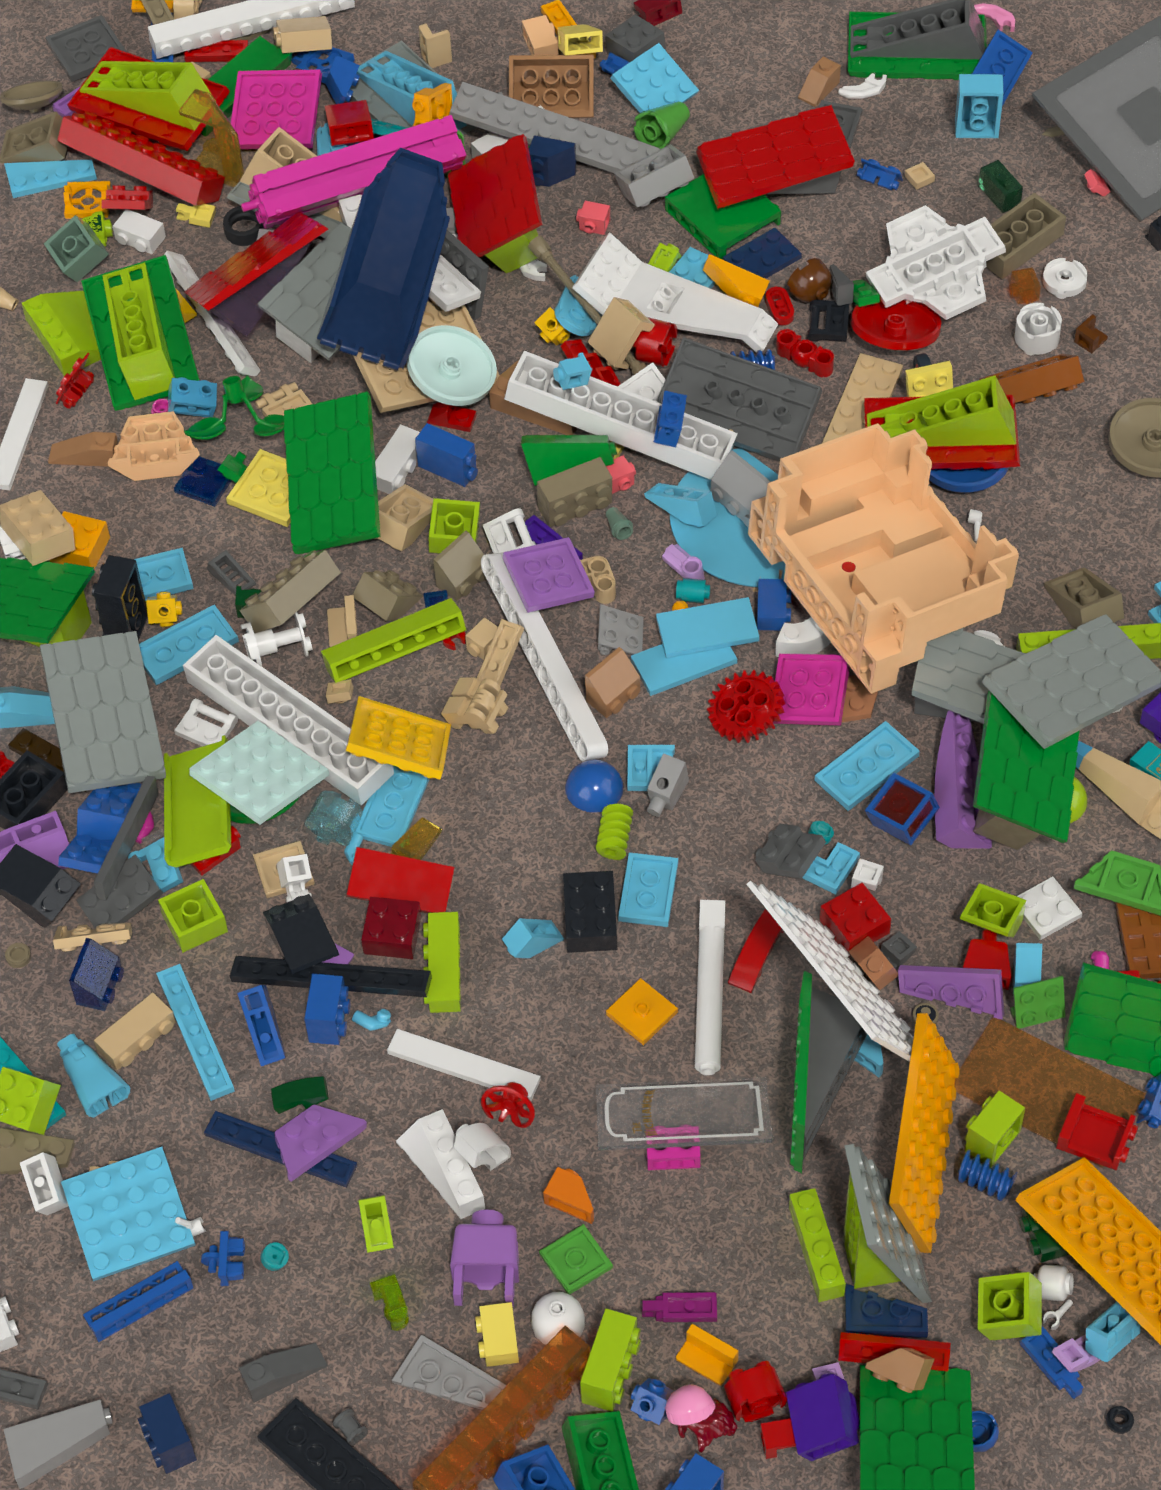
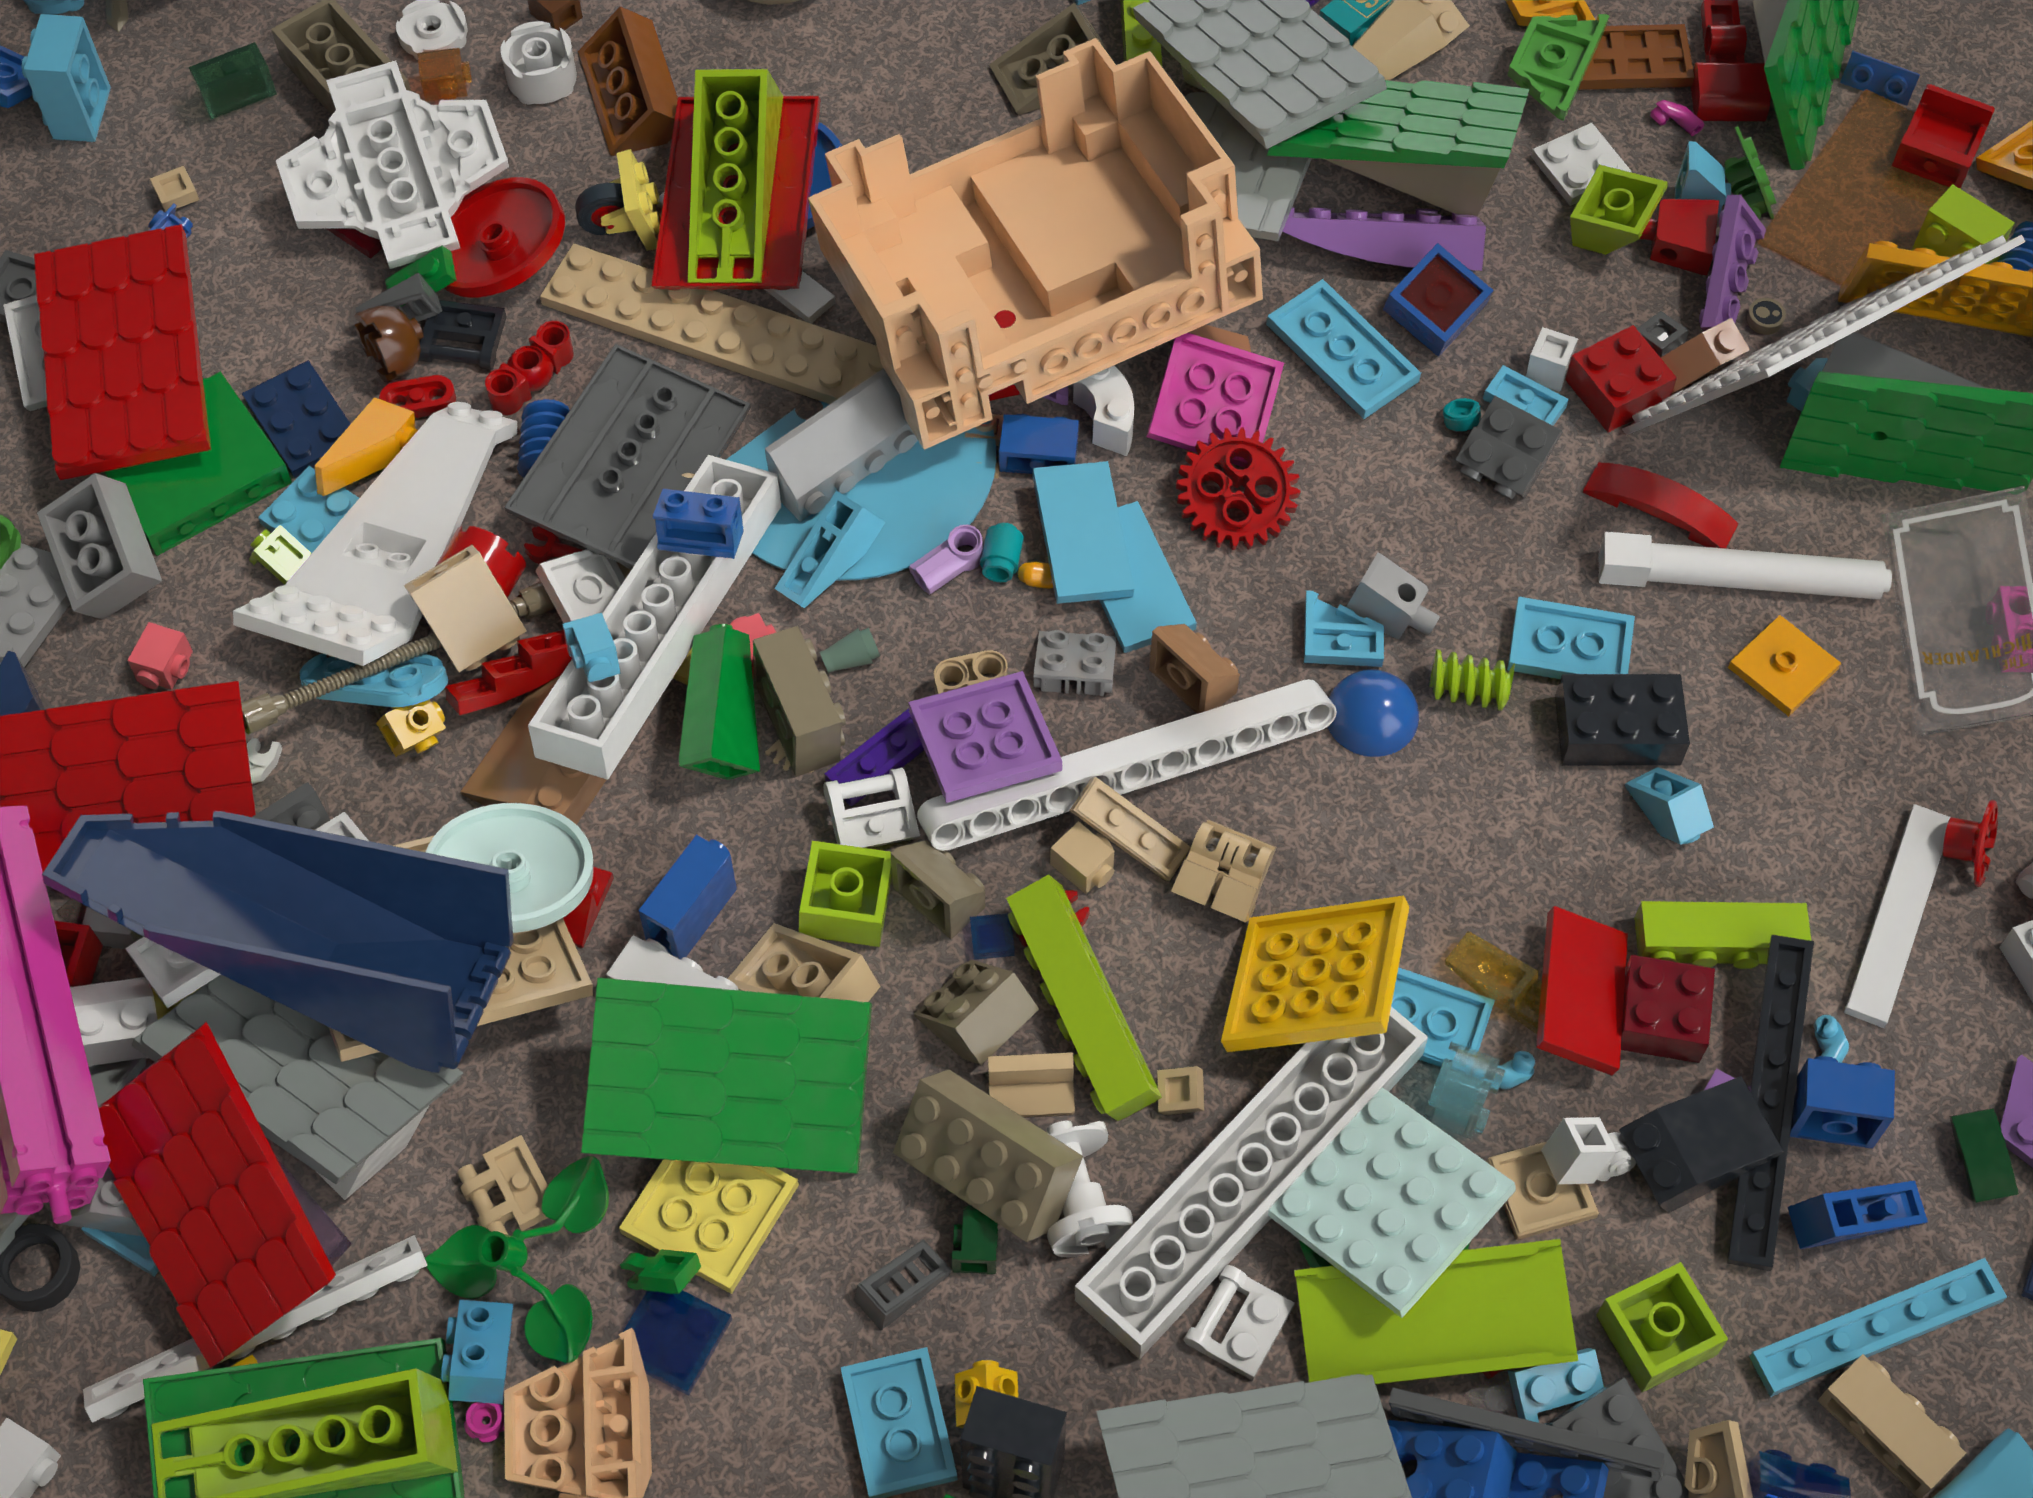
camera: 90 degrees left, 5 degrees up
(171, 649) = (1058, 1354): medium azure plate -> none

